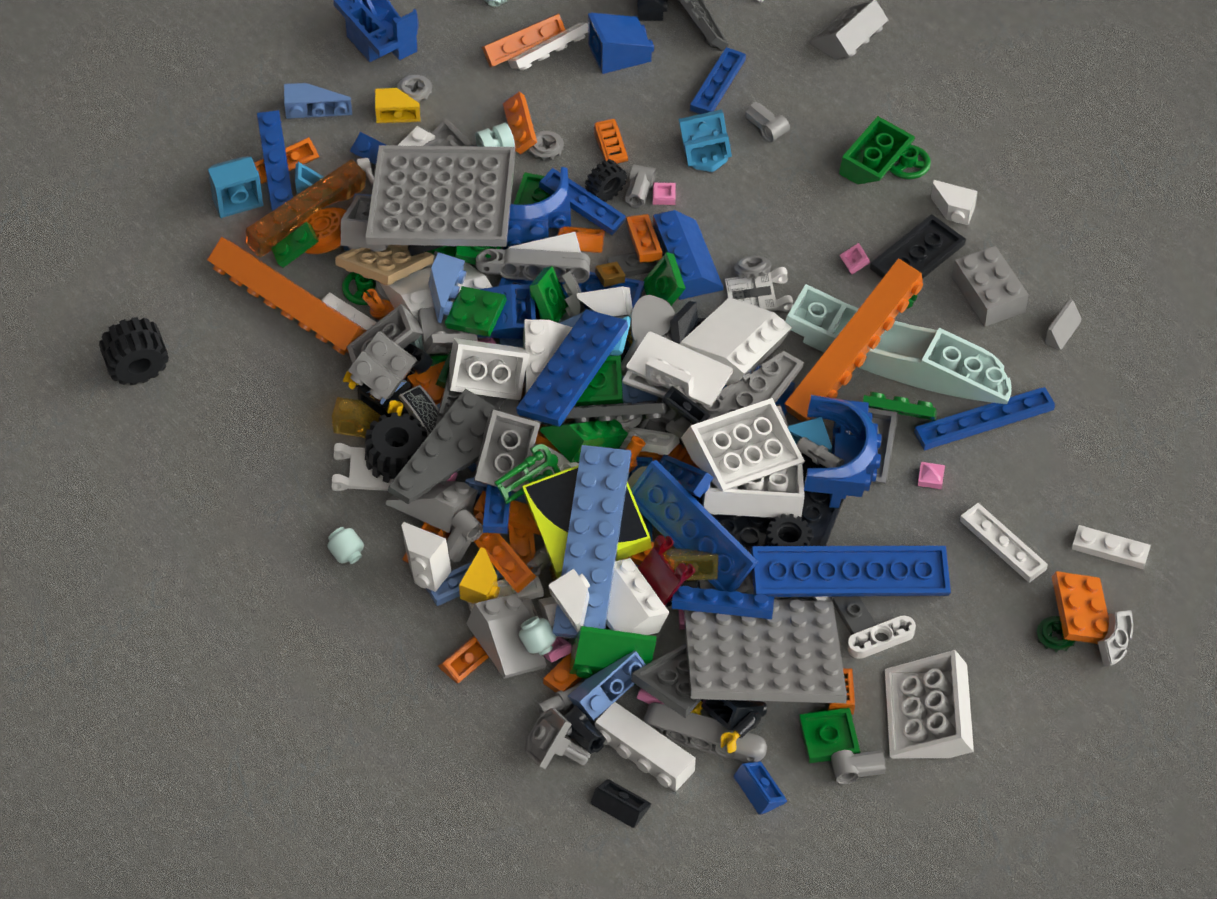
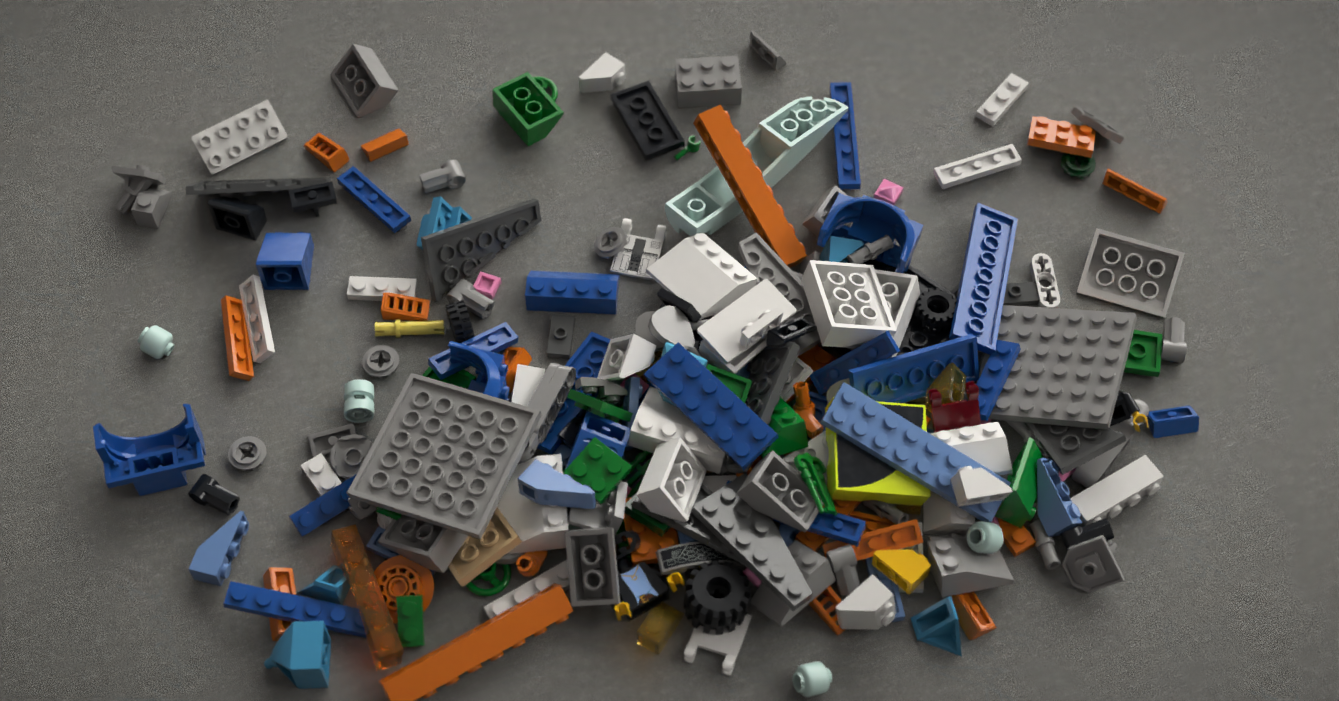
camera: 70 degrees left, 5 degrees up
(364, 78) = (209, 492): none -> black piece
(365, 165) = (328, 526): white hand -> none
(382, 366) = (631, 574): light grey plate -> none
(395, 106) = (264, 477): yellow slope -> none
(439, 634) = (939, 626): none -> dark azure slope
(520, 122) = (340, 372): orange plate -> none
(586, 146) = (409, 328): none -> light yellow pin
(610, 274) = (578, 353): pearl gold plate -> none
(620, 803) = (1162, 532): black slope -> none
(622, 112) = (373, 287): none -> white plate
(644, 238) = (541, 314): orange plate -> none
(665, 280) = (609, 314): green plate -> none
(693, 37) = (313, 197): none -> black panel
(696, 163) = (472, 244): none -> dark grey wing
(753, 35) = (328, 153): none -> orange slope
(786, 70) = (385, 144): none -> orange slope
(855, 258) = (632, 166): bright pink tile -> none
(902, 406) = (826, 182): green plate -> none
(1048, 694) = (1134, 191): none -> orange slope

